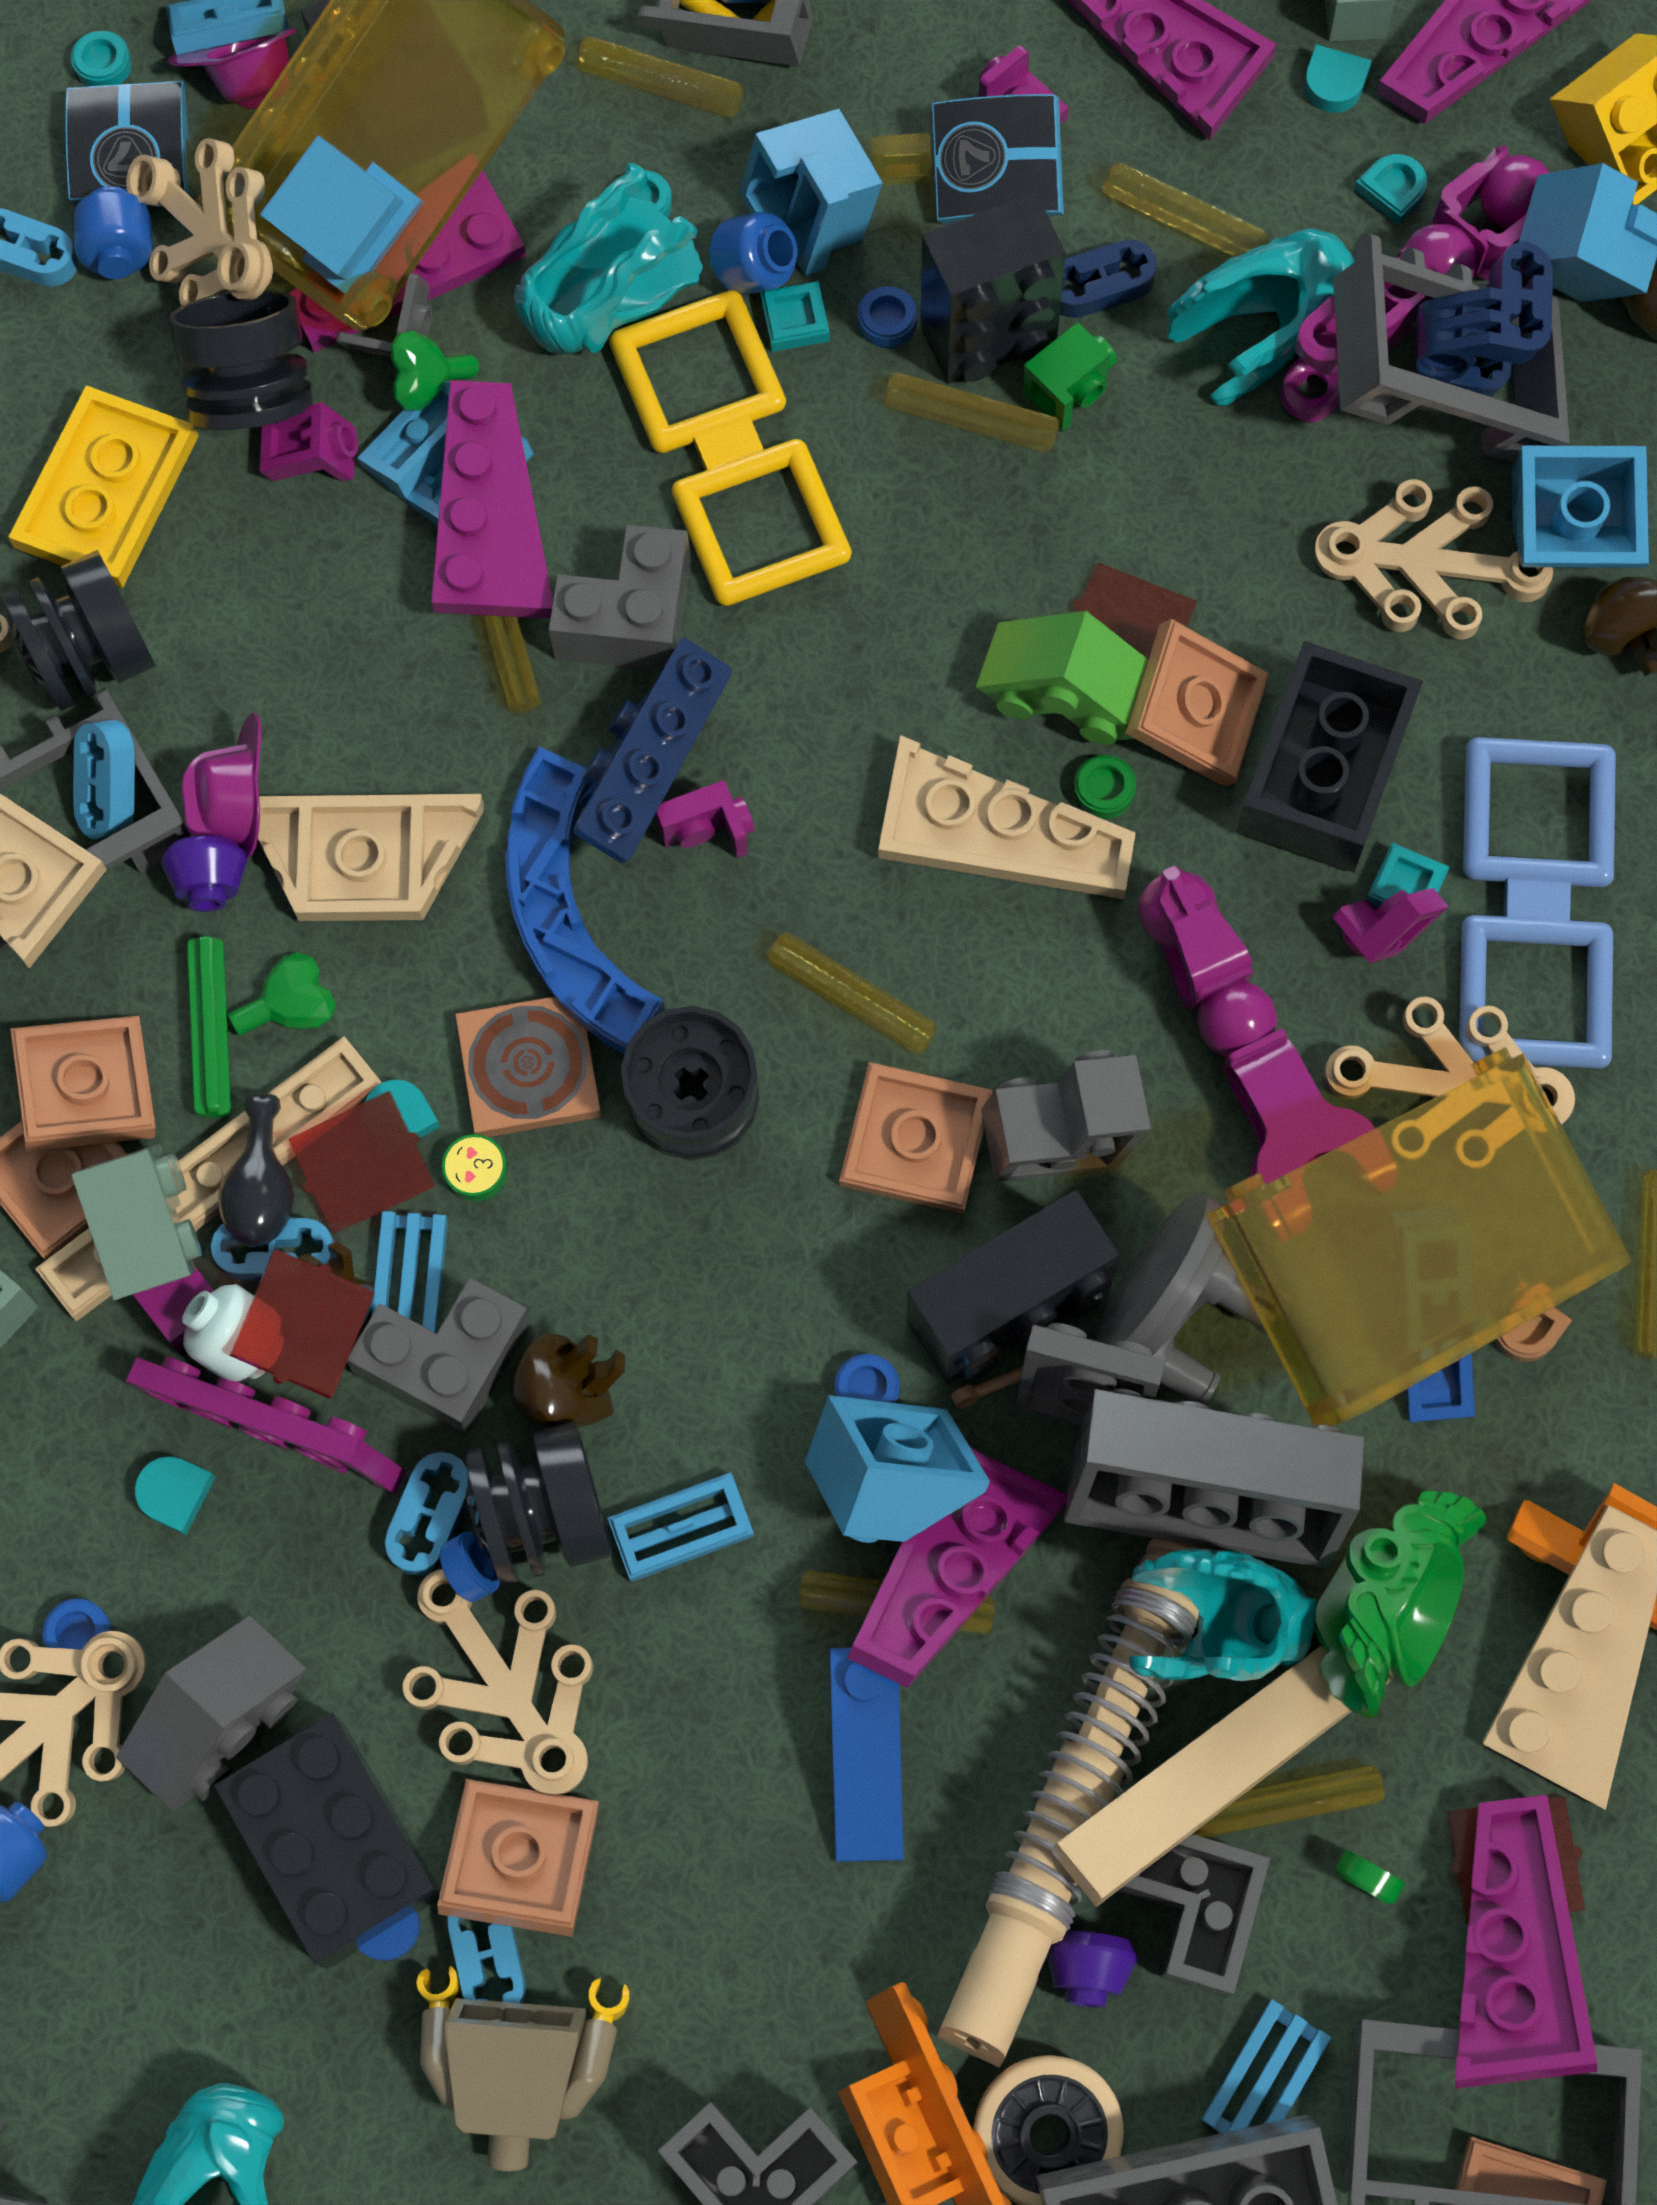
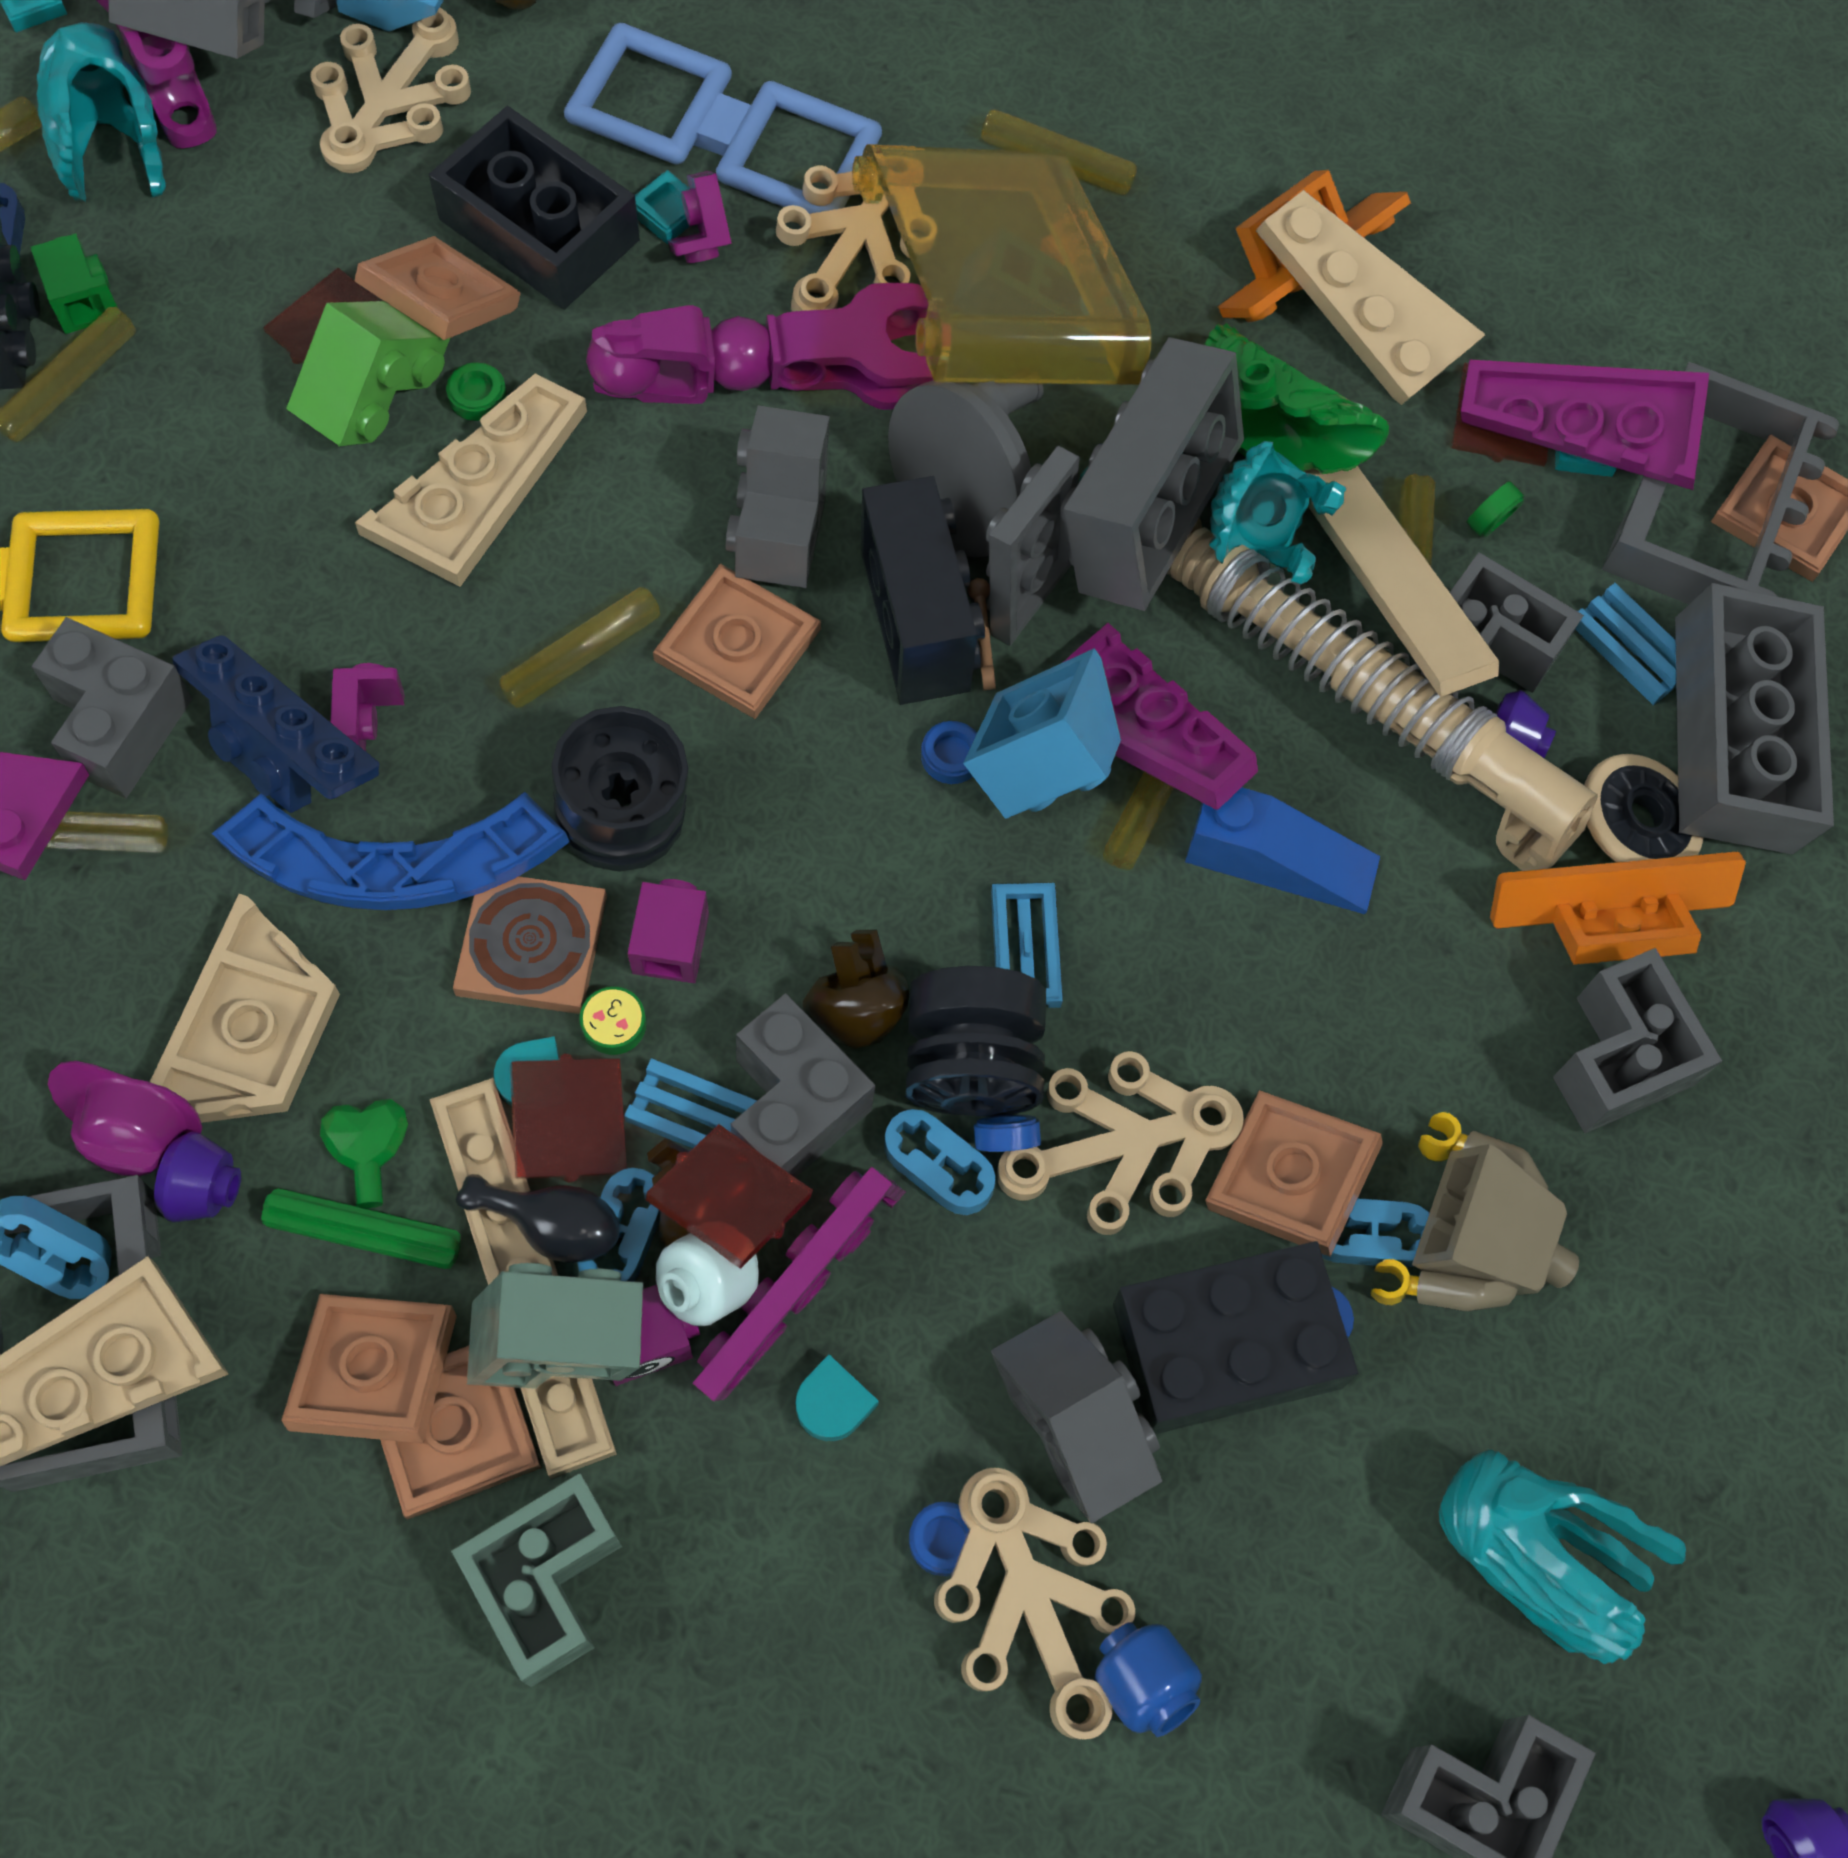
camera: 80 degrees left, 5 degrees down
(573, 1183) = (668, 930): none -> magenta brick

